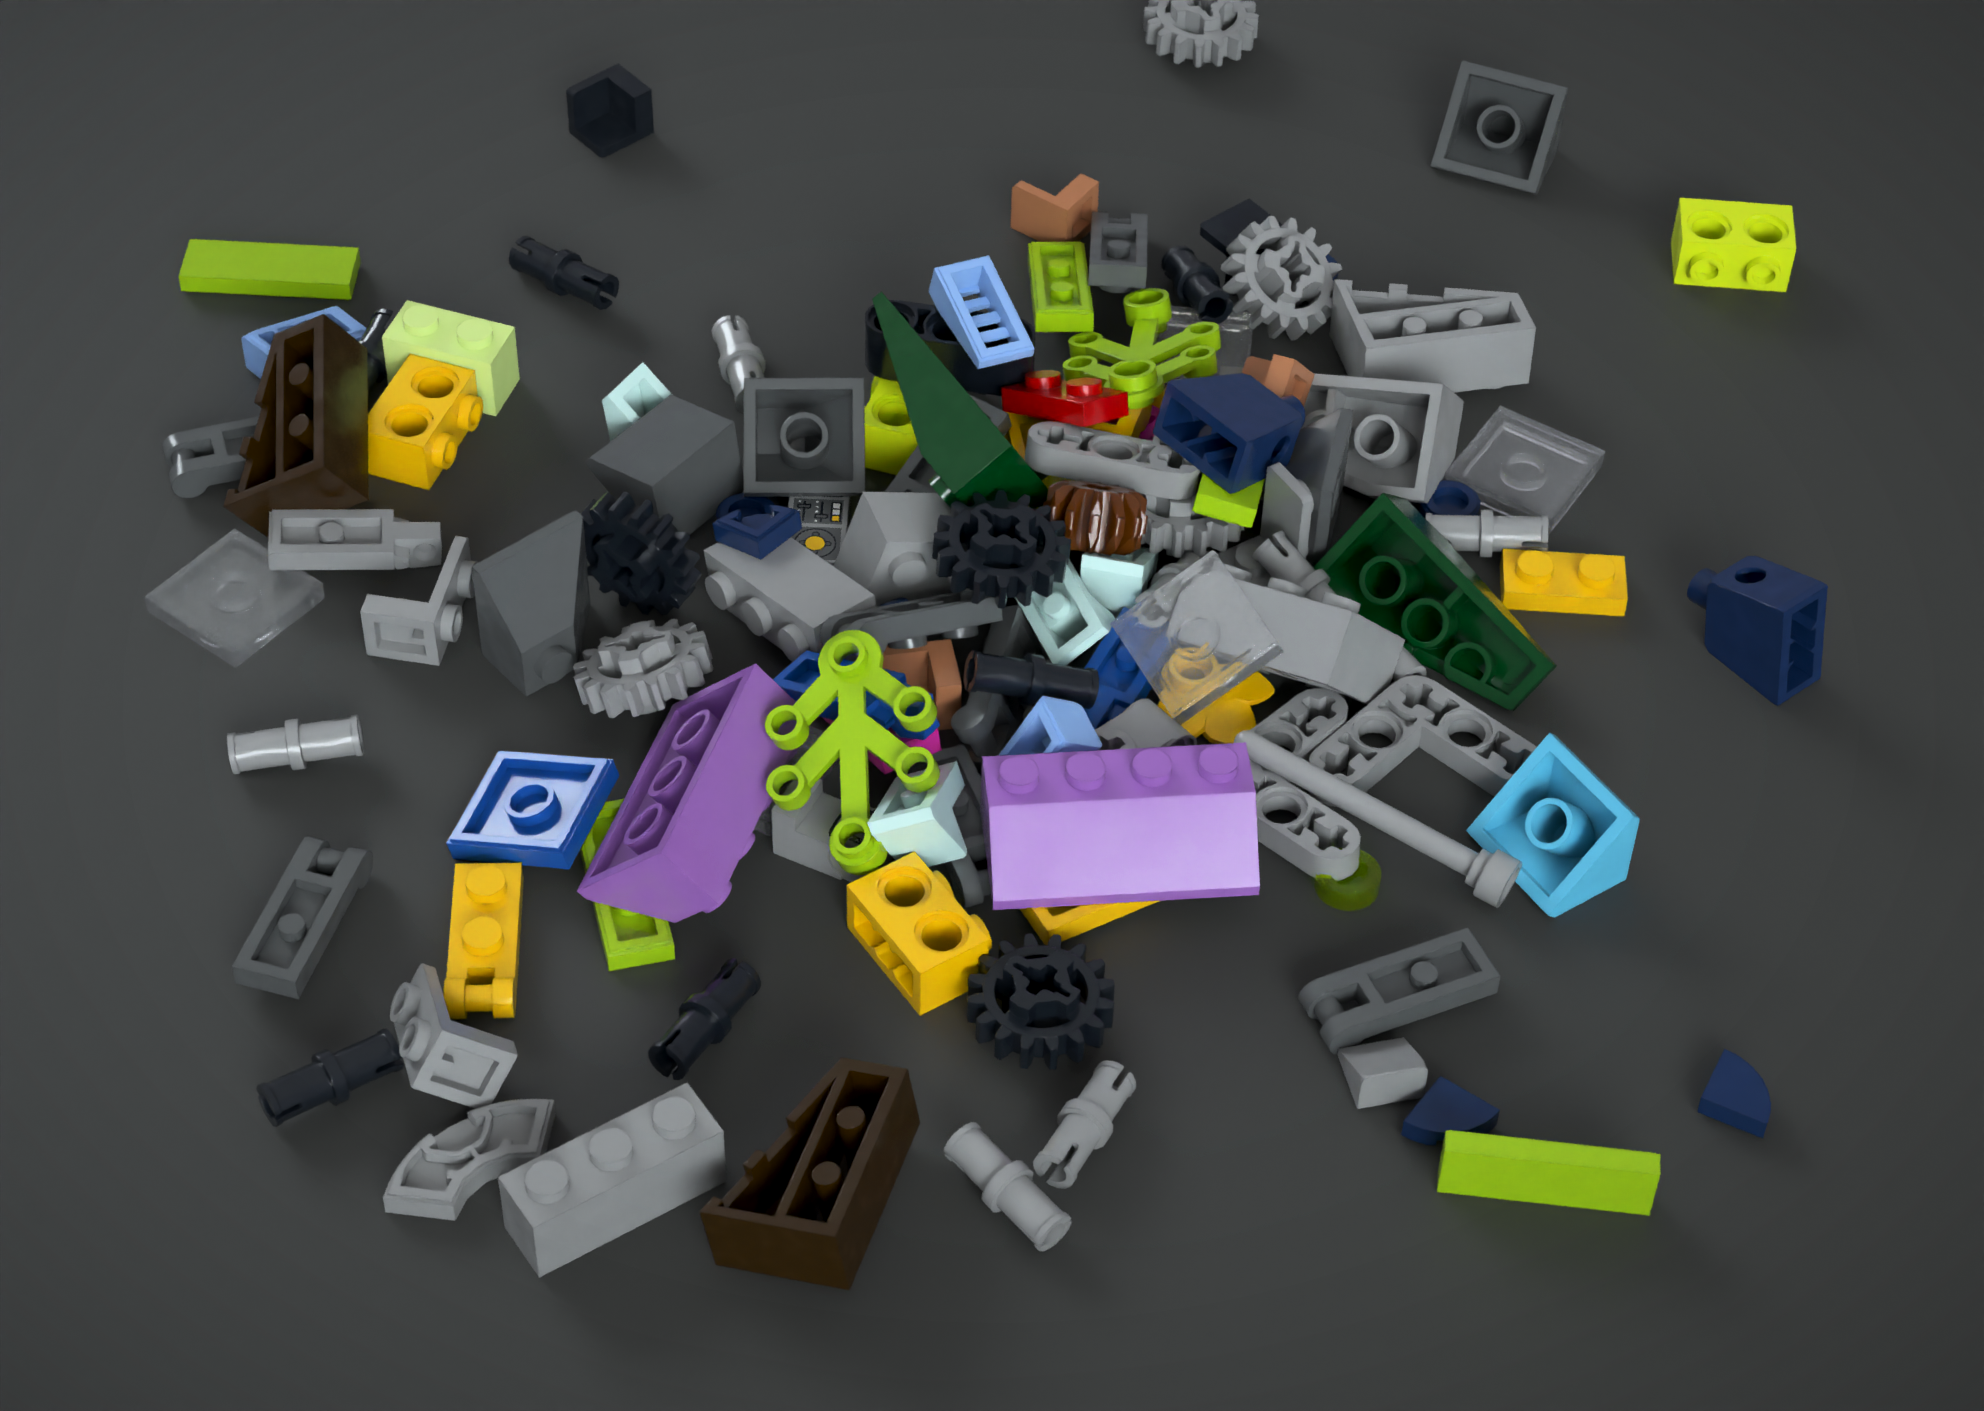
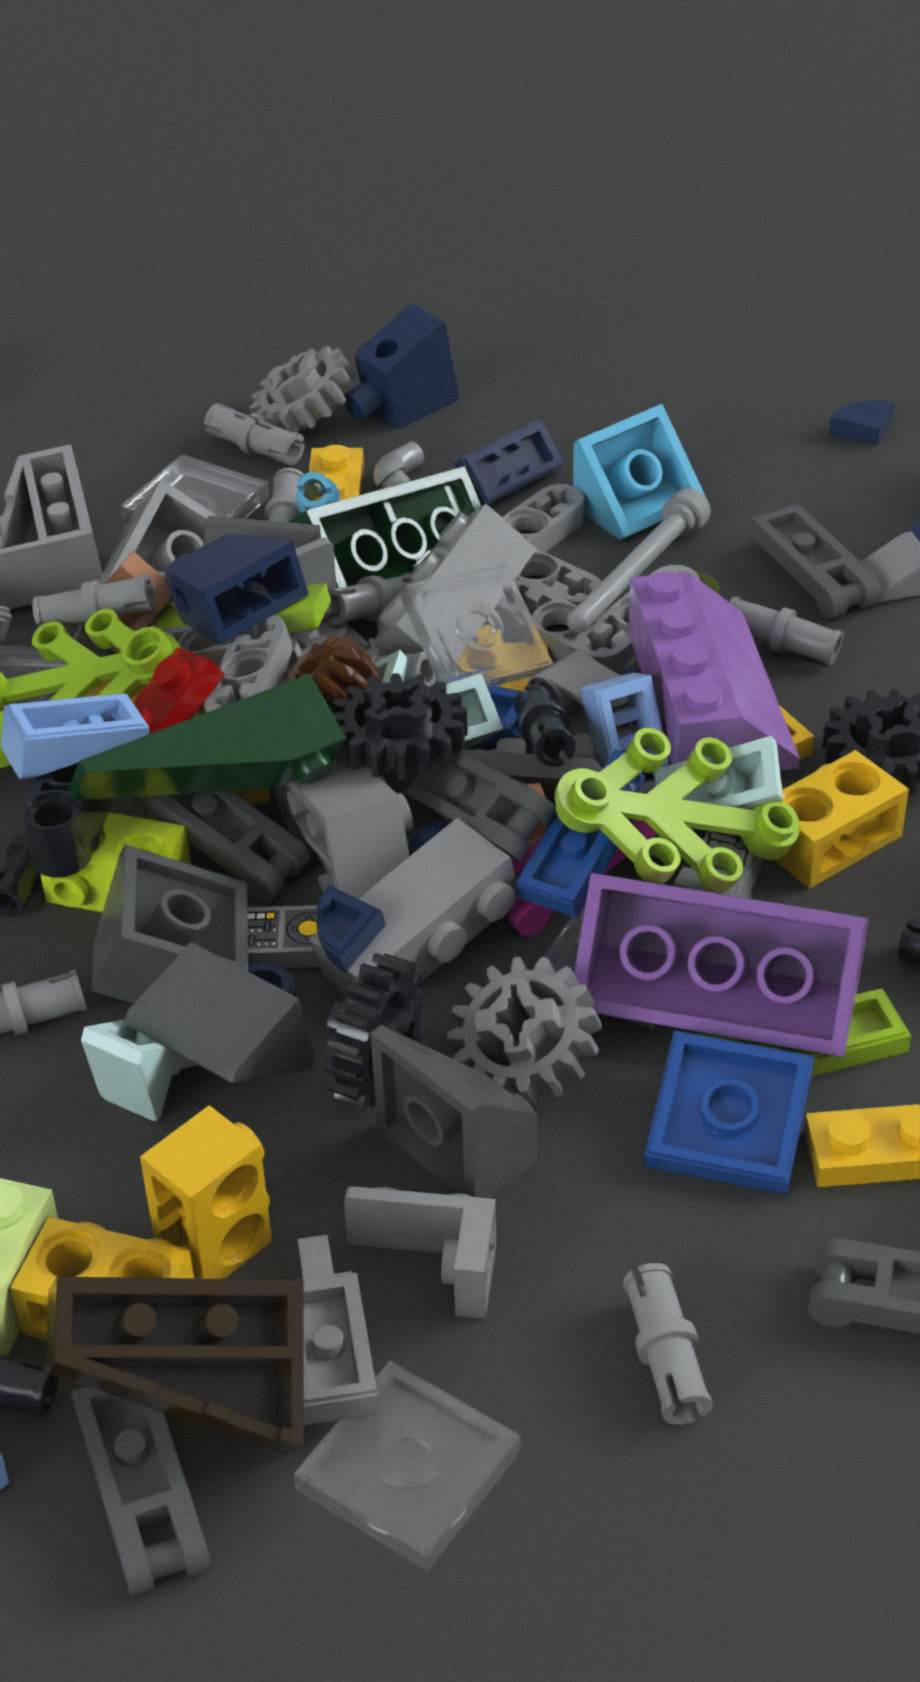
camera: 90 degrees left, 5 degrees down
(471, 455) = (209, 1193): none -> yellow brick
(1241, 346) = (78, 605): none -> light grey pin
(1256, 940) = (788, 632): none -> light grey pin
(1462, 530) = (310, 490): none -> medium azure pin
(1591, 722) = (511, 462): none -> dark blue plate
(1596, 627) = (392, 467): none -> light grey arm
(1652, 509) = (254, 434): none -> light grey pin
(1721, 534) = (304, 389): none -> light grey gear

